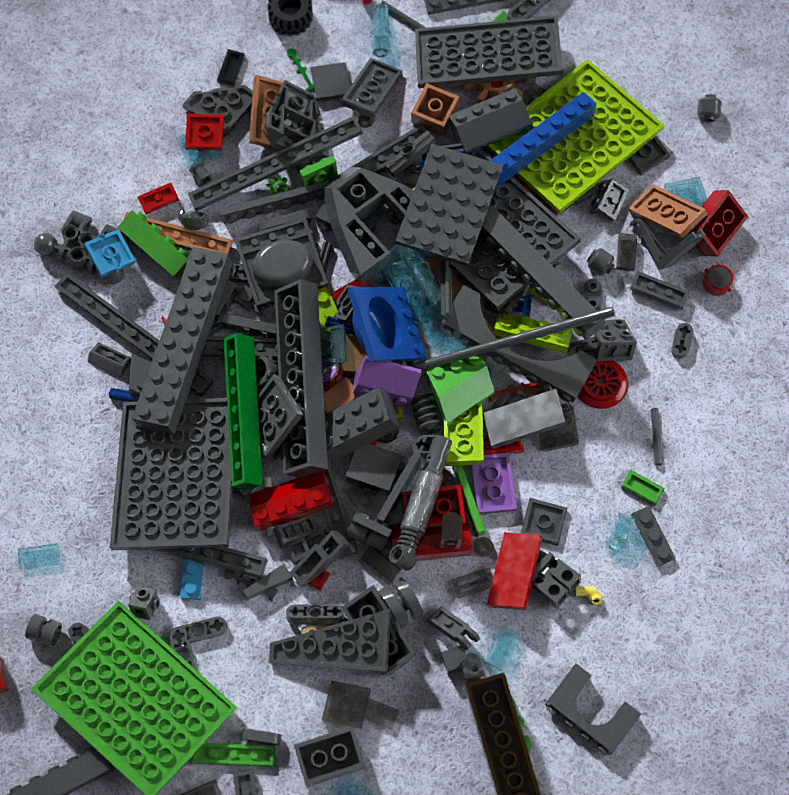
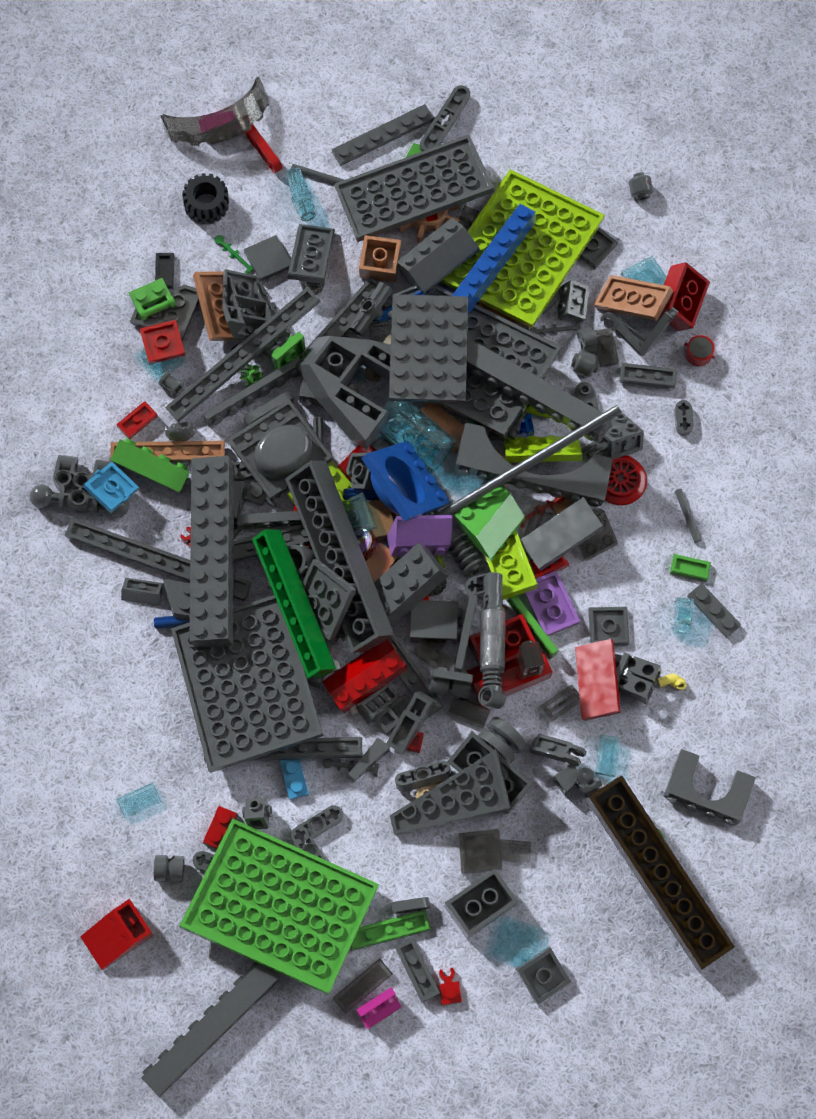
camera: 20 degrees left, 0 degrees up
(105, 603) = (219, 826): none -> red plate
(208, 85) = (149, 295): none -> bright green plate
(446, 289) = (450, 432): dark grey axle -> none
(483, 546) = (560, 666): clear smoke plate -> none
(563, 218) = (555, 329): none -> dark grey piece
(610, 240) = (587, 340): none -> dark grey piece

